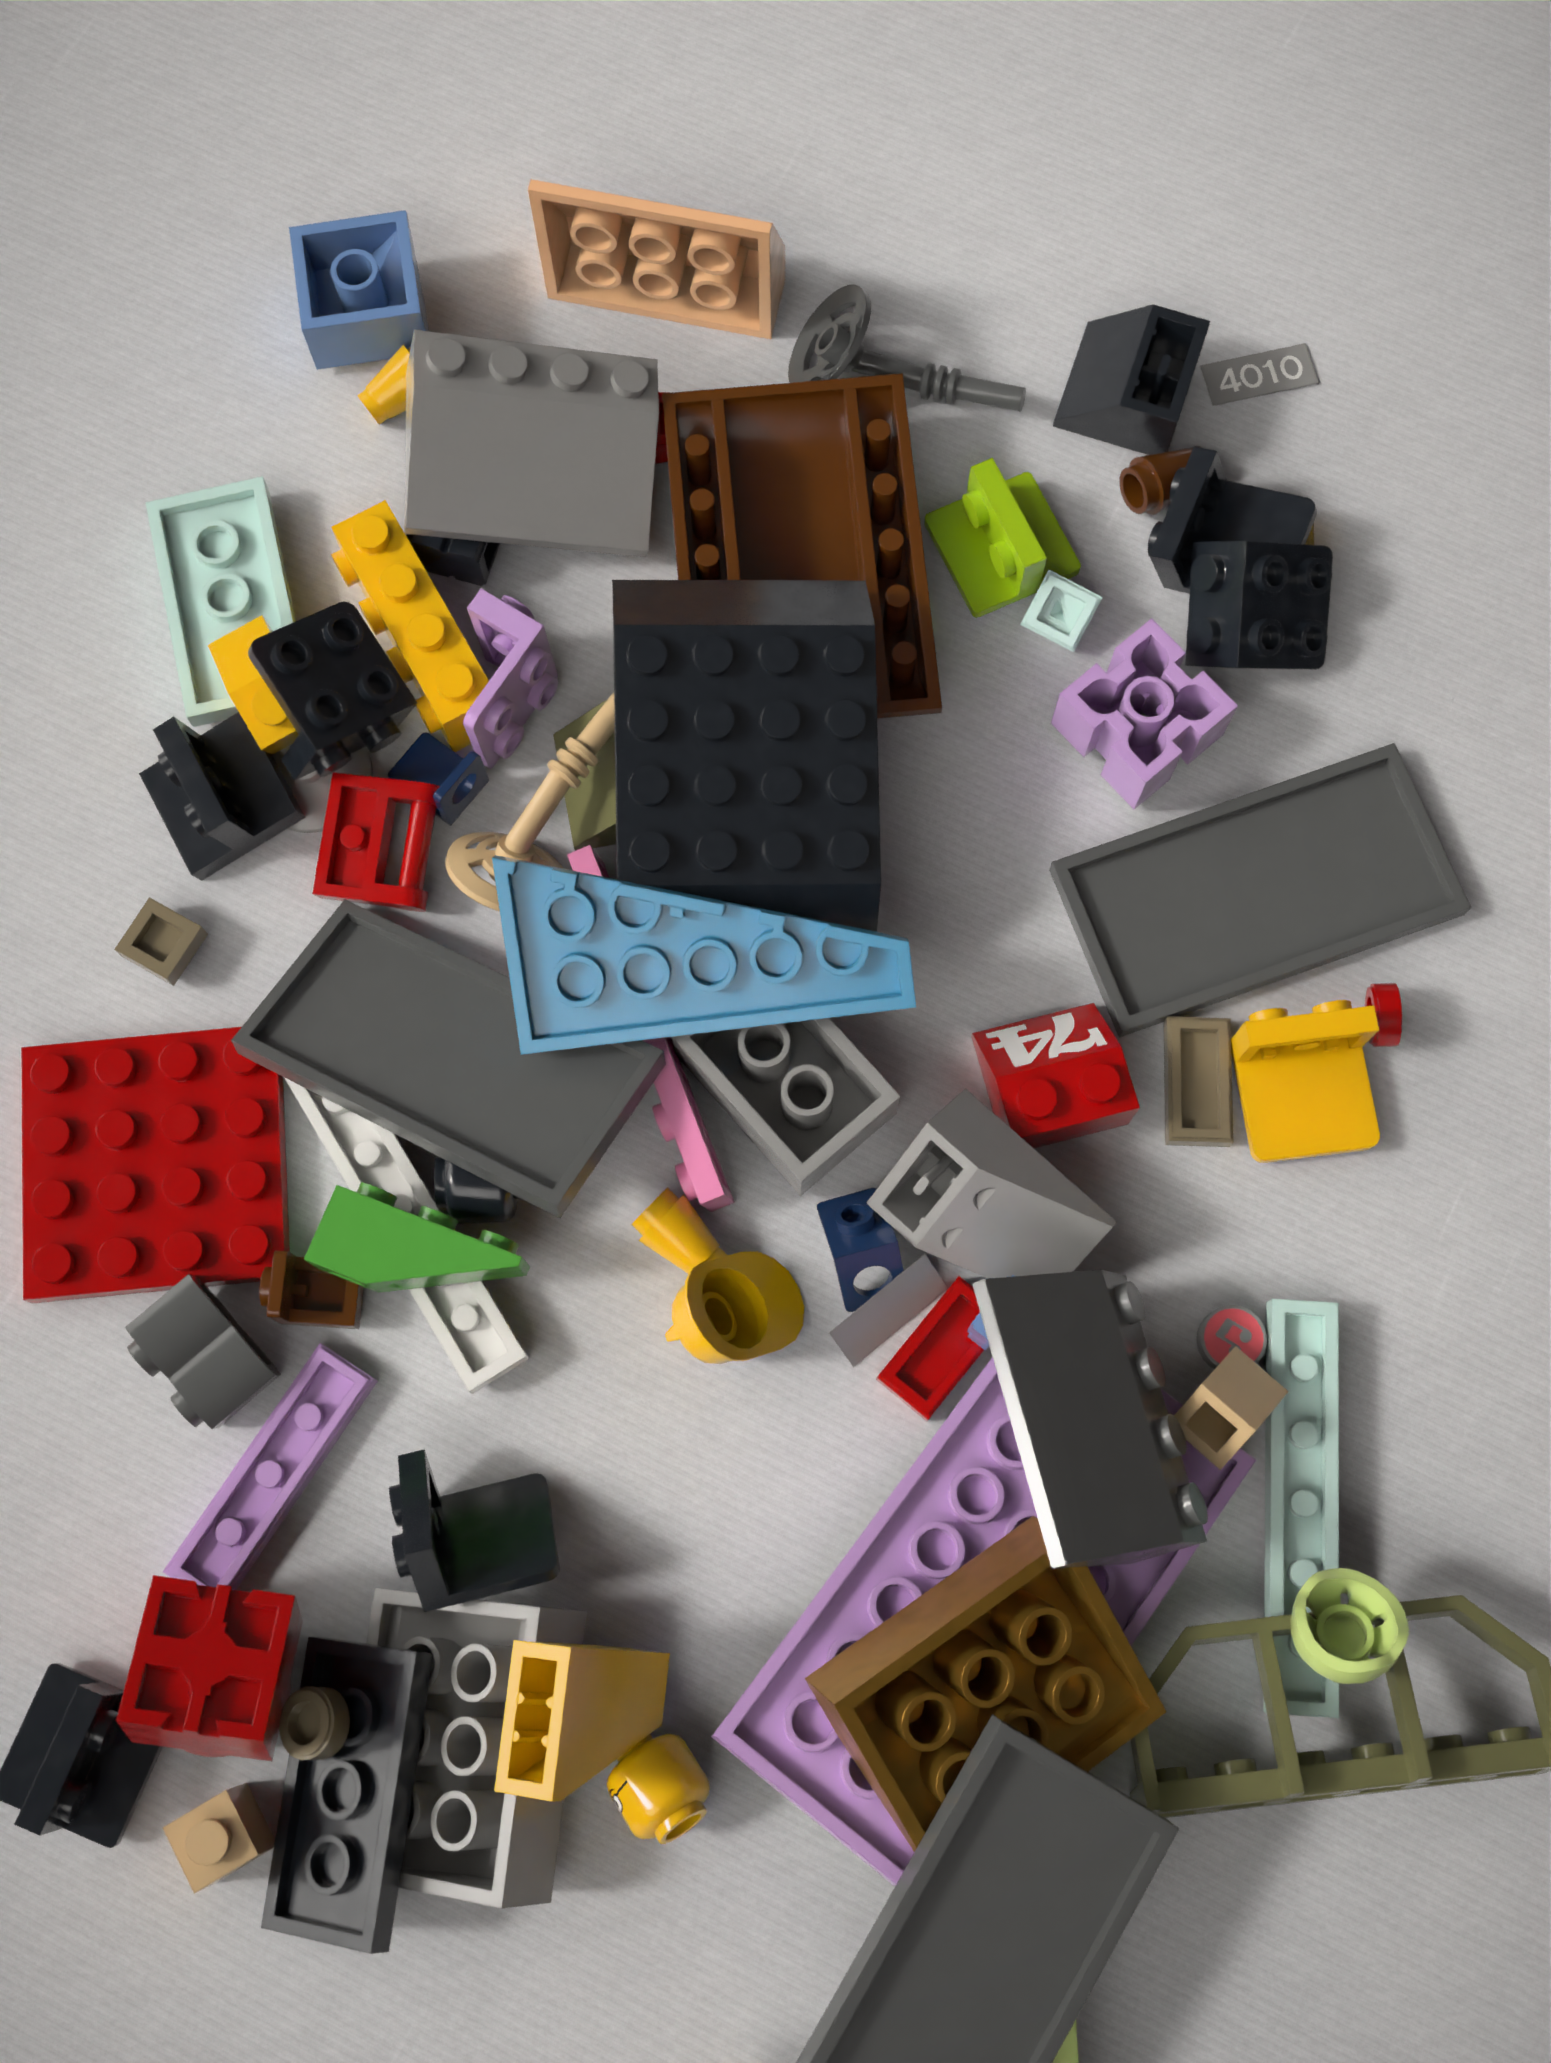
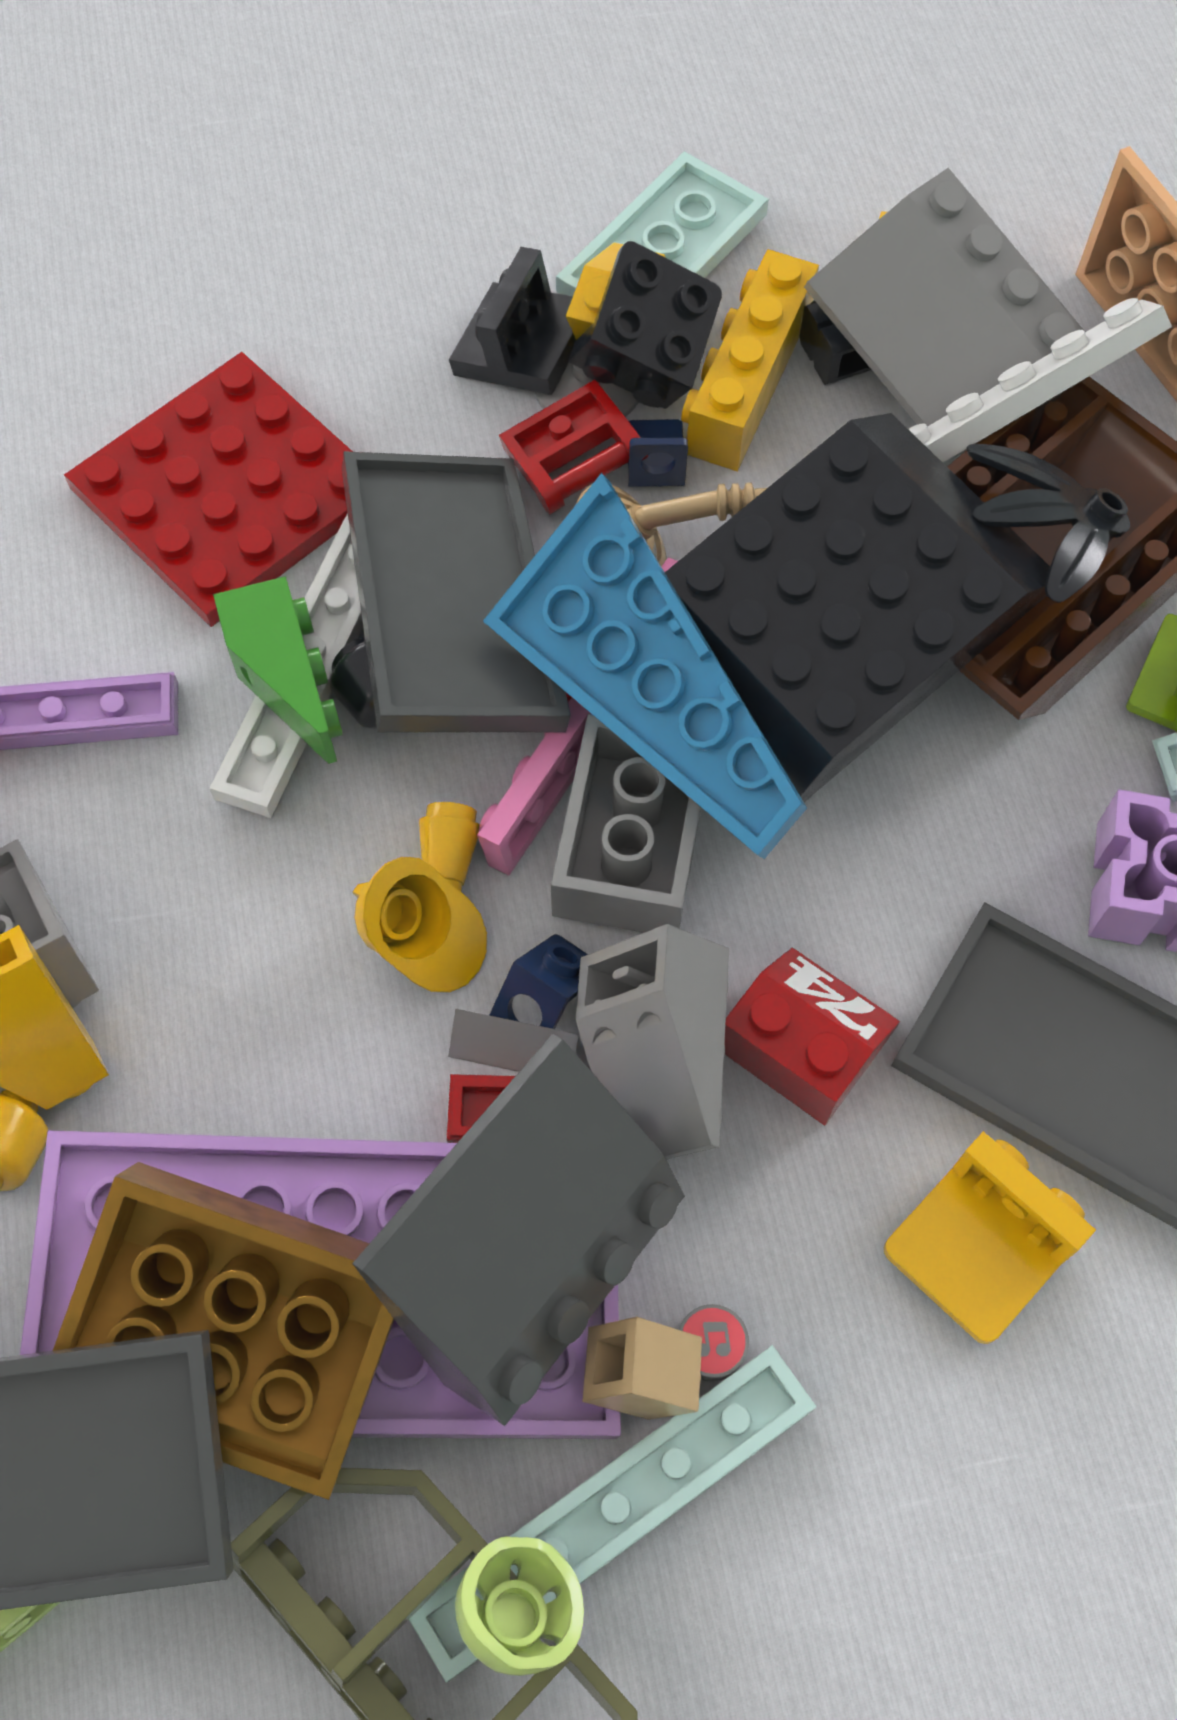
camera: 50 degrees right, 10 degrees down
(161, 941) = (385, 376): dark tan plate -> none
(201, 1353) = (106, 601): dark grey brick -> none
(308, 1296) = (198, 635): reddish brown bracket -> none
(357, 288) = (960, 132): medium blue slope -> none
(471, 1539) = (78, 857): black bracket -> none
(523, 678) = (760, 434): lavender bracket -> none
(662, 452) = (1030, 385): none -> white plate
(820, 508) = (1092, 512): none -> black plant
(1198, 1081) = (907, 1153): dark tan tile -> none
(1388, 1012) = (1103, 1261): red tile -> none

